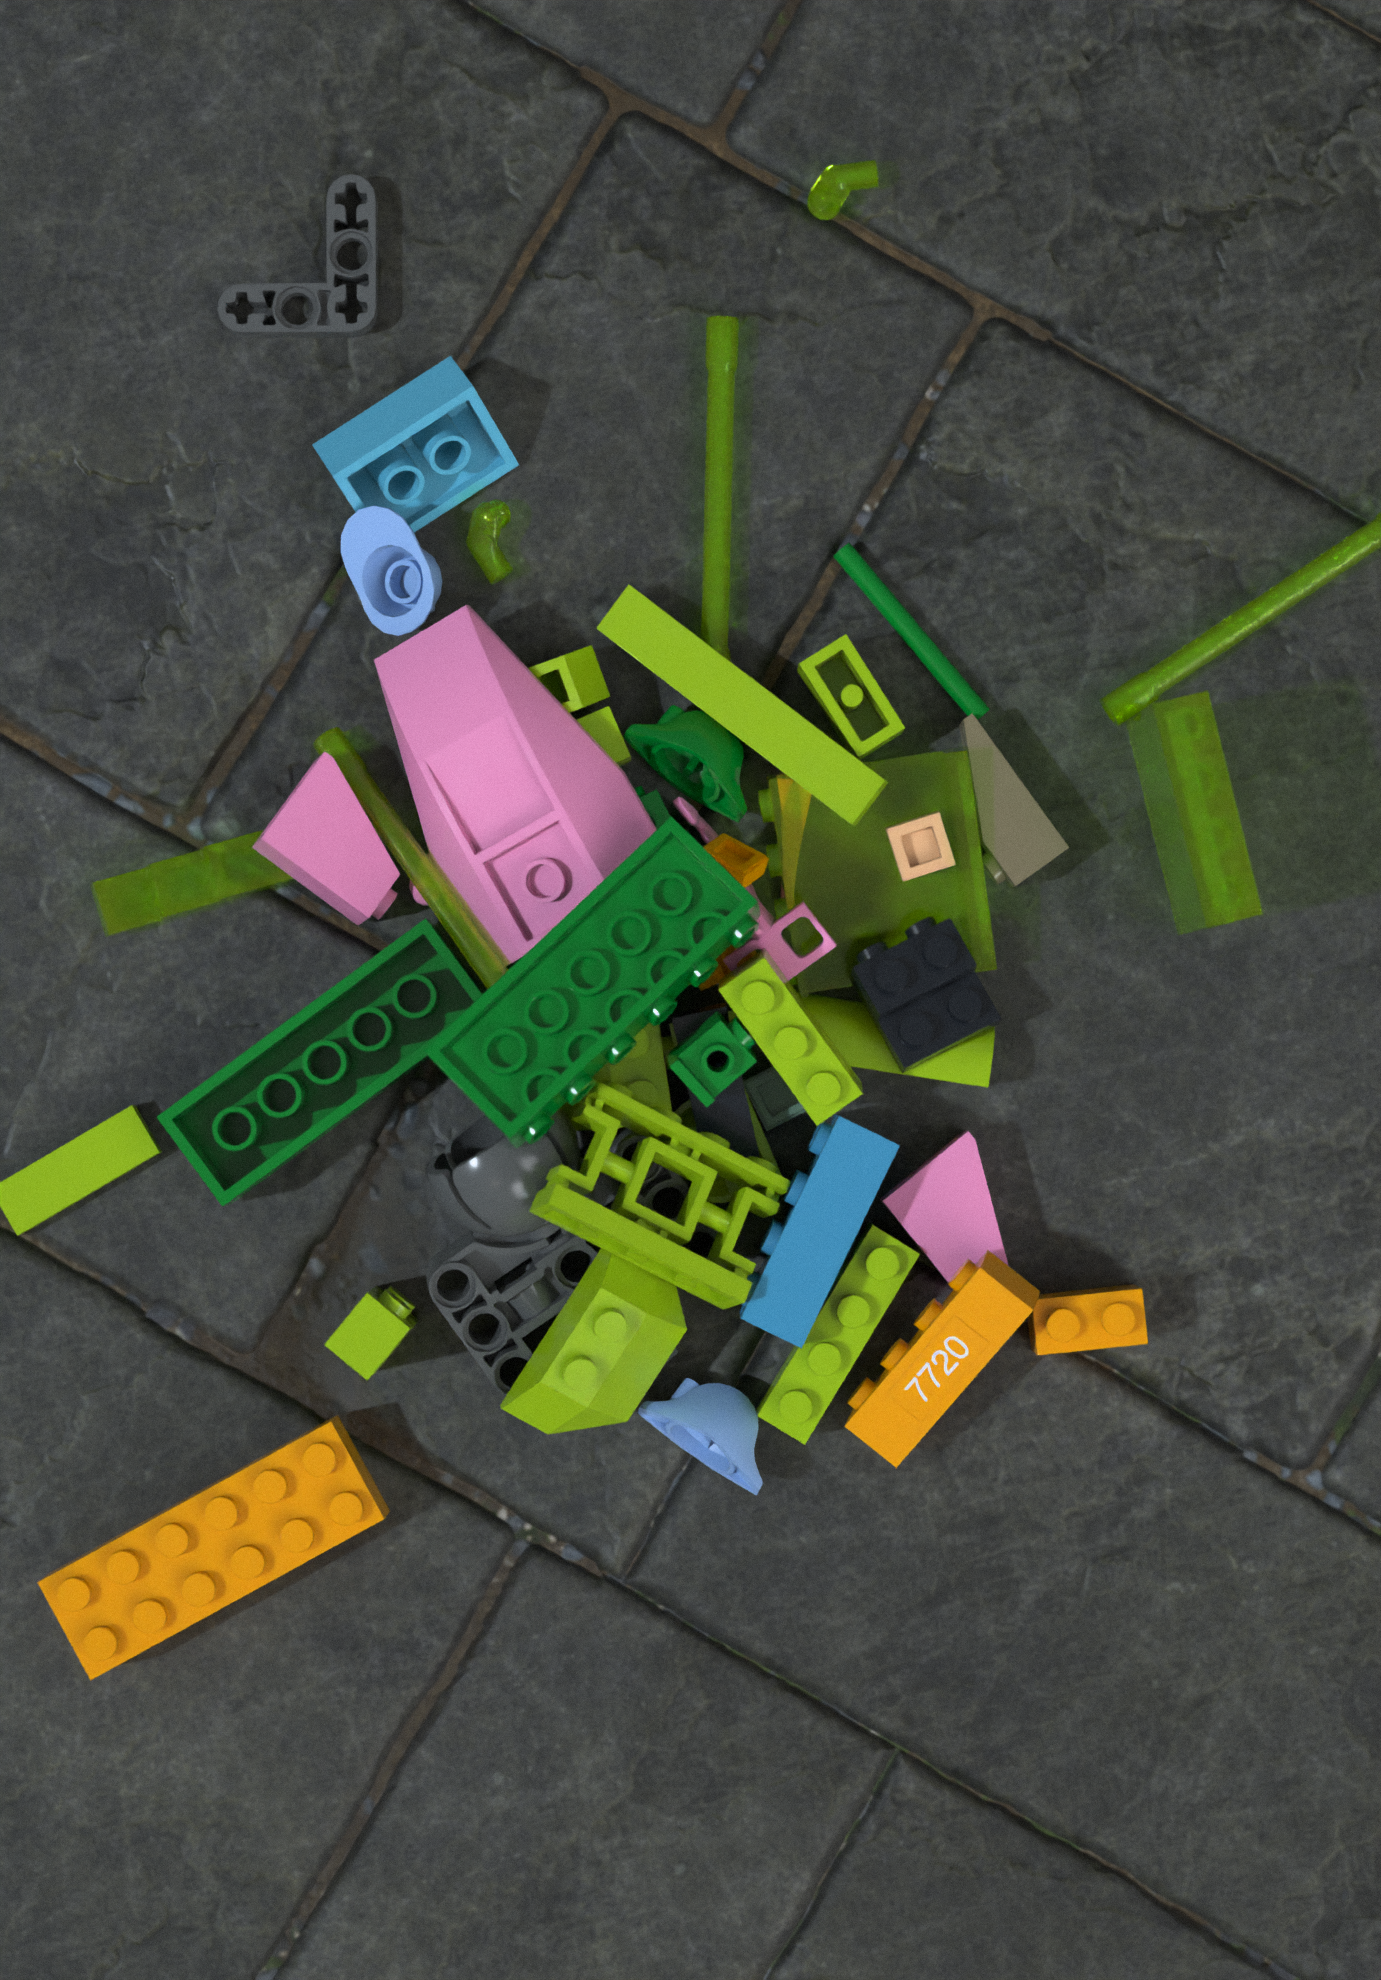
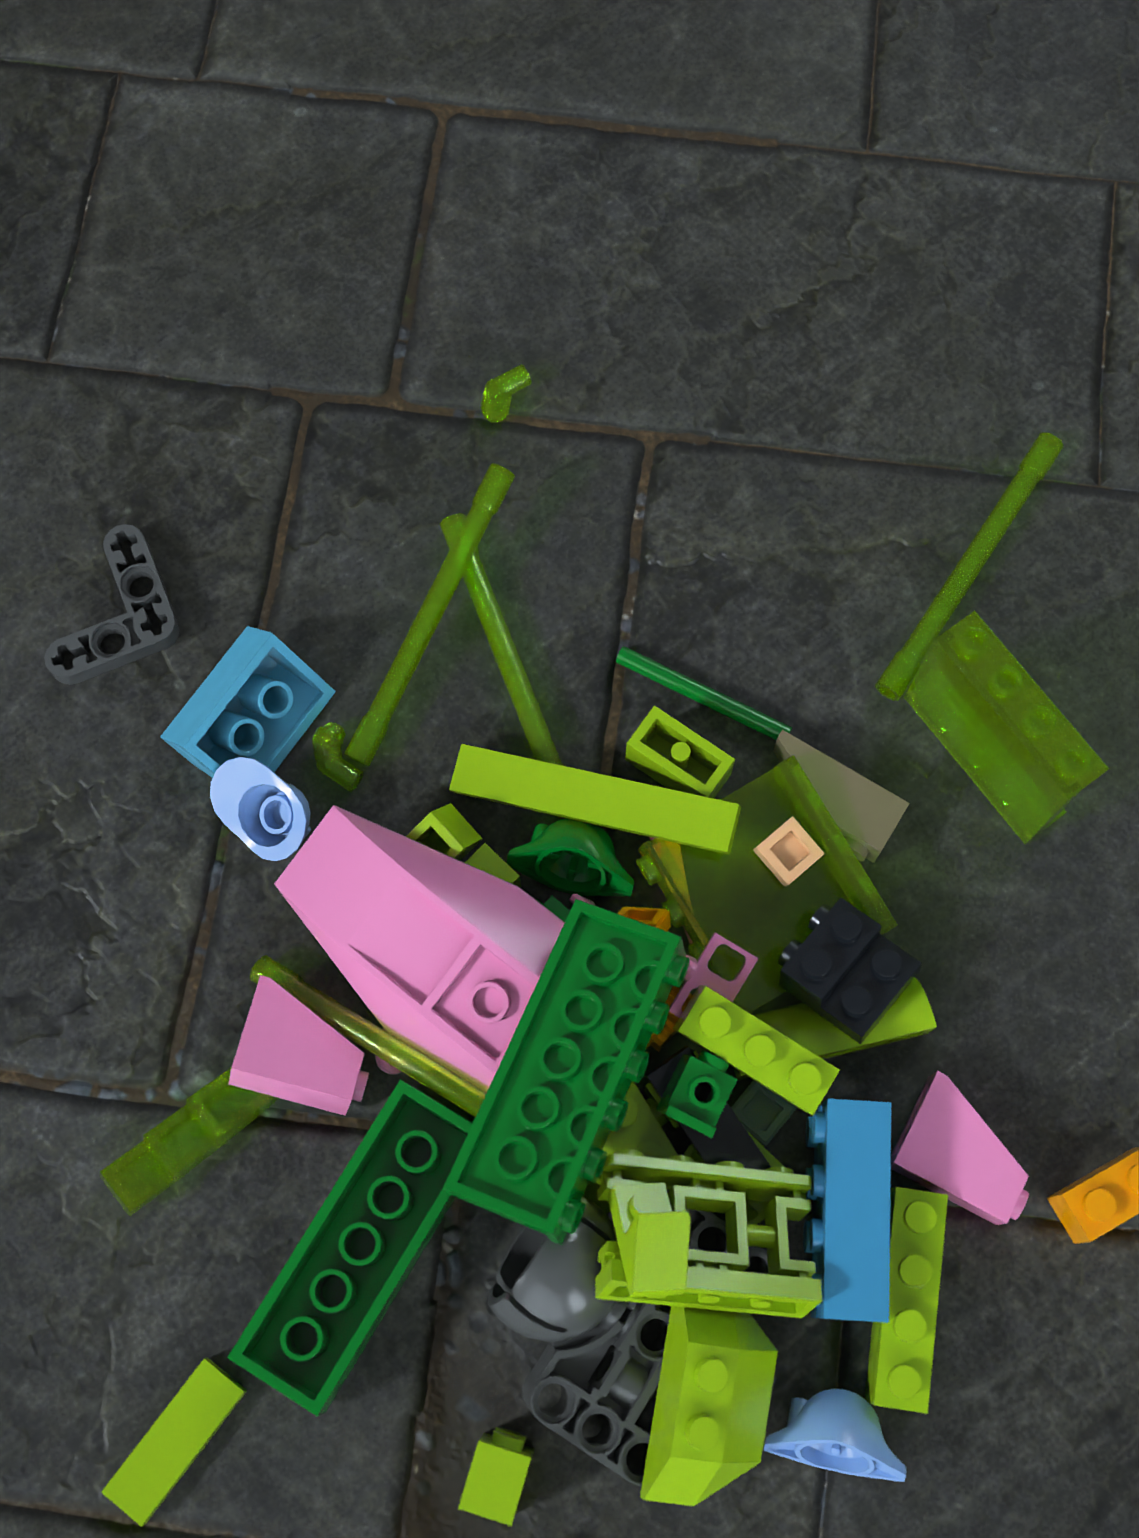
camera: 20 degrees left, 15 degrees down
(601, 1179) = (650, 1239): none -> lime slope
(761, 325) = (375, 723): none -> clear neon green piece
(941, 1357) = (1008, 1281): light orange brick -> none

